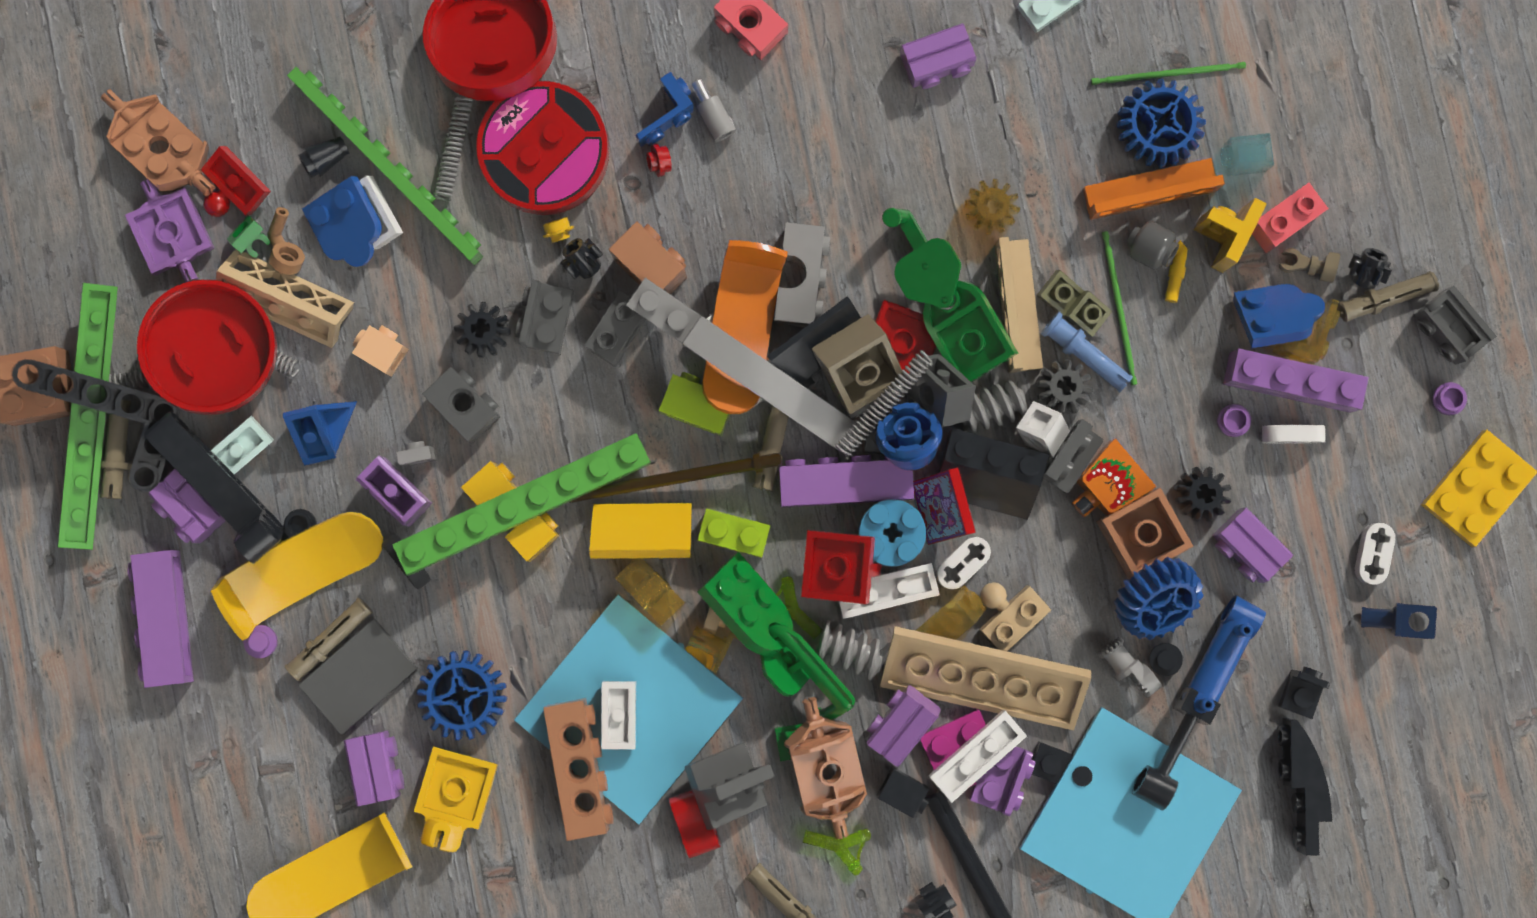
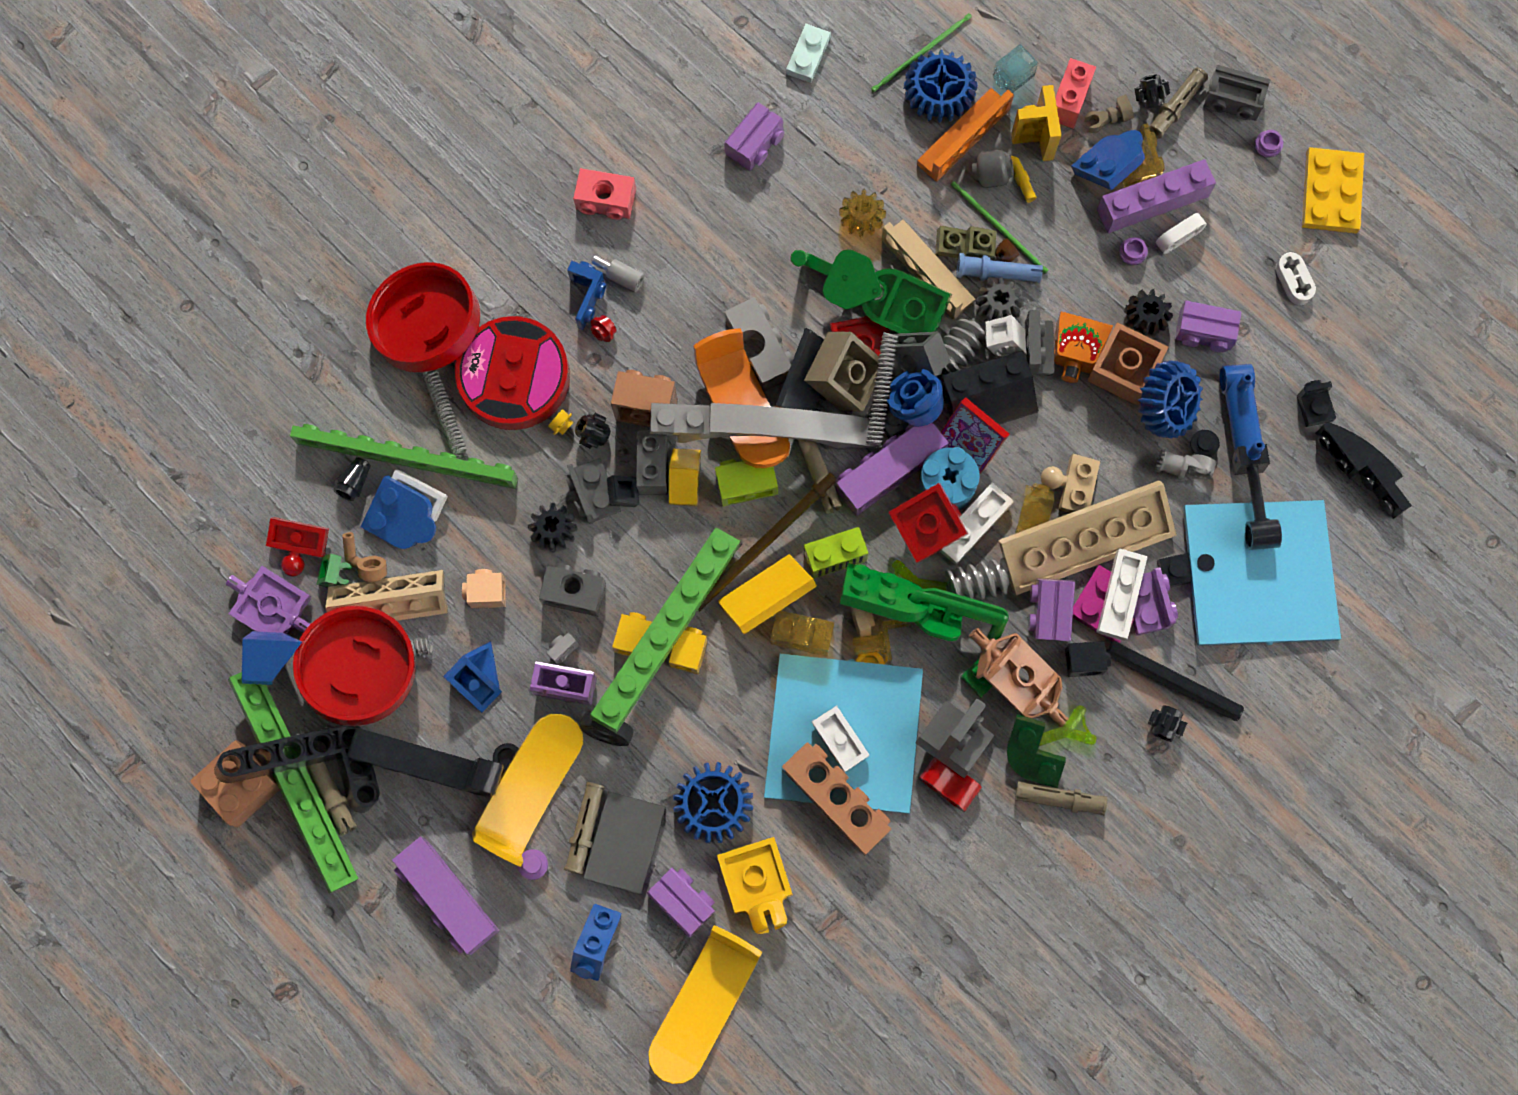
camera: 30 degrees left, 10 degrees down
(130, 283) = (265, 656): none -> blue slope
(141, 124) = (202, 538): nougat plate -> none
(186, 508) = (412, 797): medium lavender brick -> none
(242, 444) = (425, 724): light aqua plate -> none
(271, 751) = (594, 942): none -> blue bracket
(571, 337) = (623, 491): none -> black tile
(642, 360) = (684, 477): none -> yellow slope
(782, 848) = (1027, 758): none -> dark green plate
(969, 568) = (1020, 471): white beam -> none
(1109, 335) = (1008, 251): none -> reddish brown hinge
(1399, 620) = (1344, 312): dark blue bracket -> none

